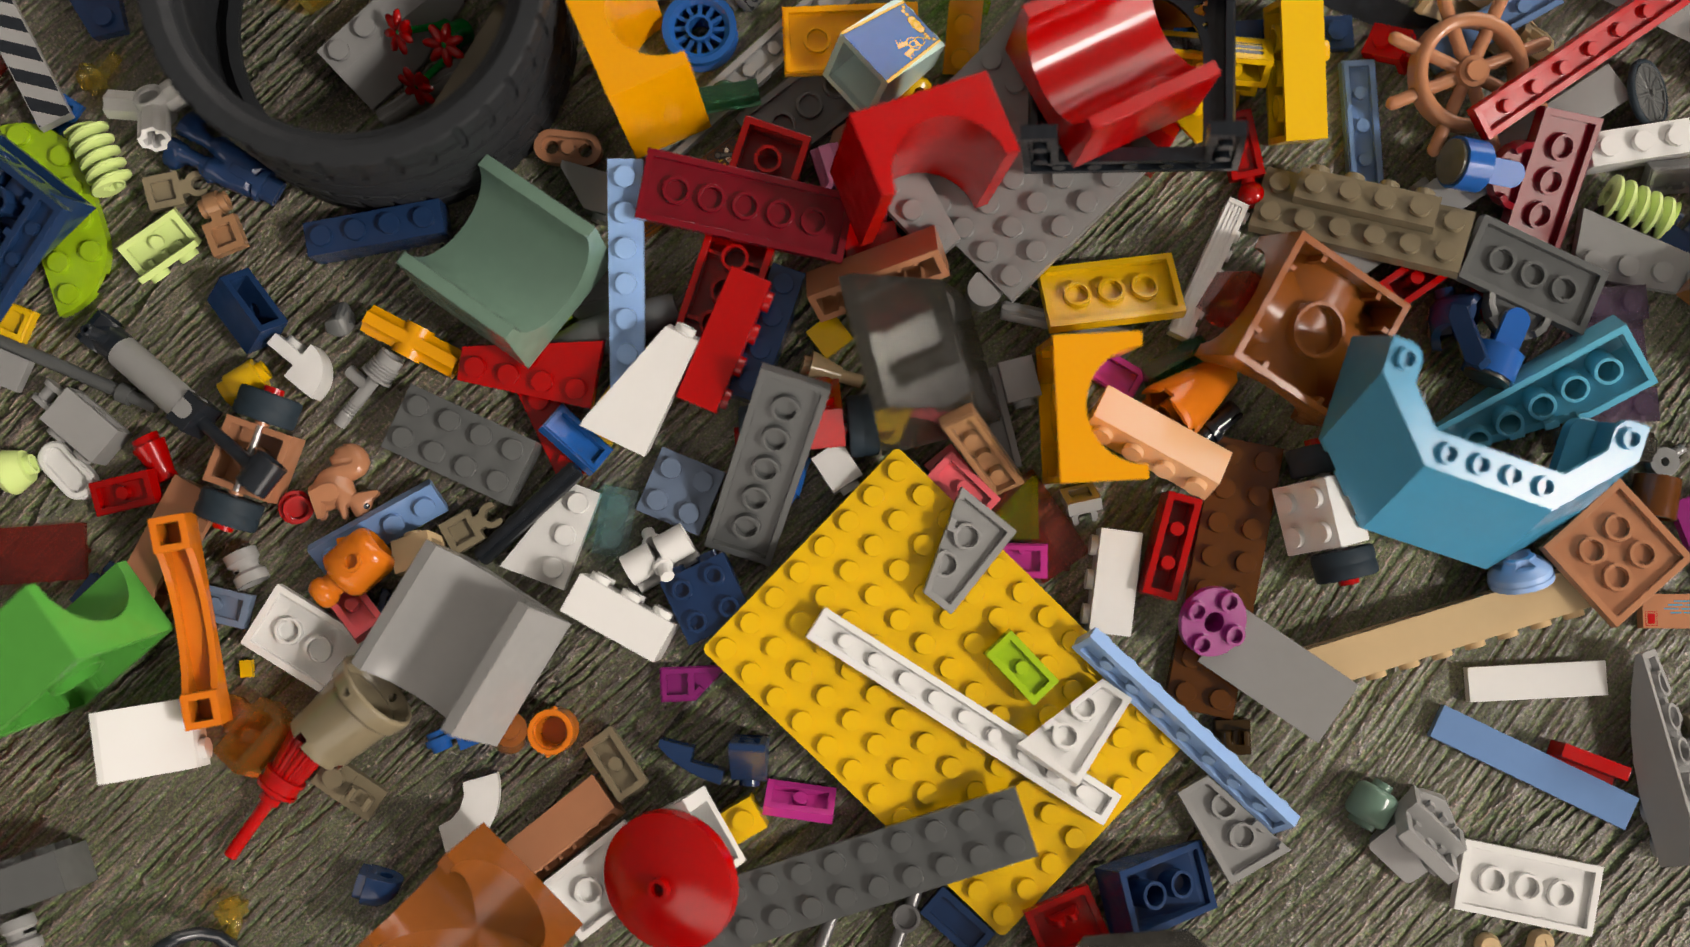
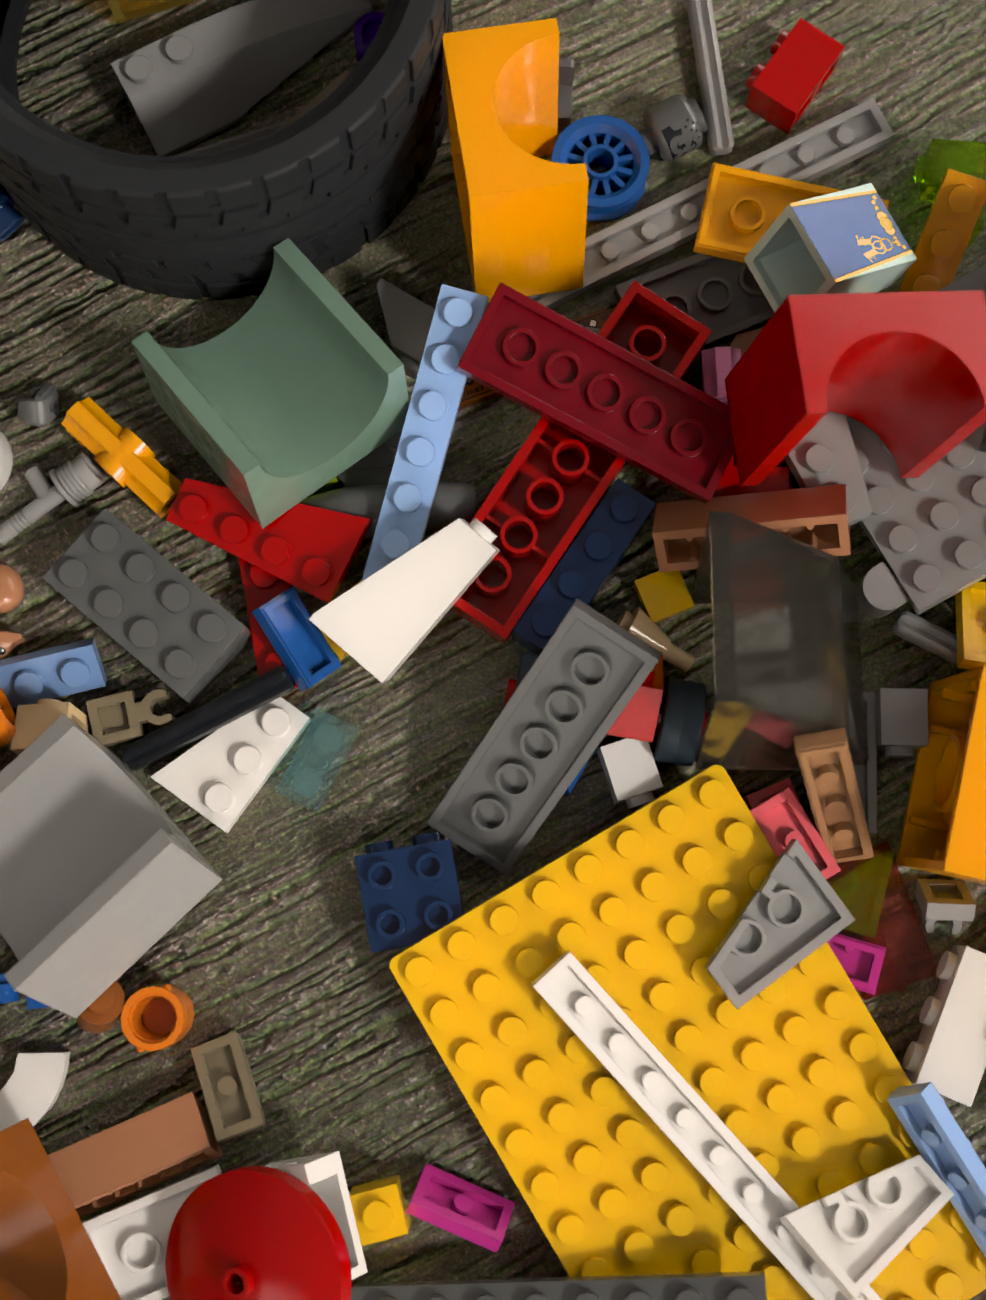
camera: 15 degrees right, 5 degrees down
(378, 231) = (120, 306): dark blue brick -> none
(448, 43) = (277, 92): red plant -> none
(569, 147) = (395, 266): nougat plate -> none
(621, 615) = (291, 886): white brick -> none
(657, 556) = (361, 821): white pin -> none
(681, 491) = (415, 744): sand blue plate -> none
(683, 753) = (320, 1097): dark blue slope -> none
(686, 682) = (352, 1000): magenta tile -> none
(724, 341) = (530, 559): red brick -> none
(730, 95) = (621, 254): clear green plate -> none
(749, 758) = (409, 1130): dark blue slope -> none
(1021, 667) = (813, 1108): lime plate -> none

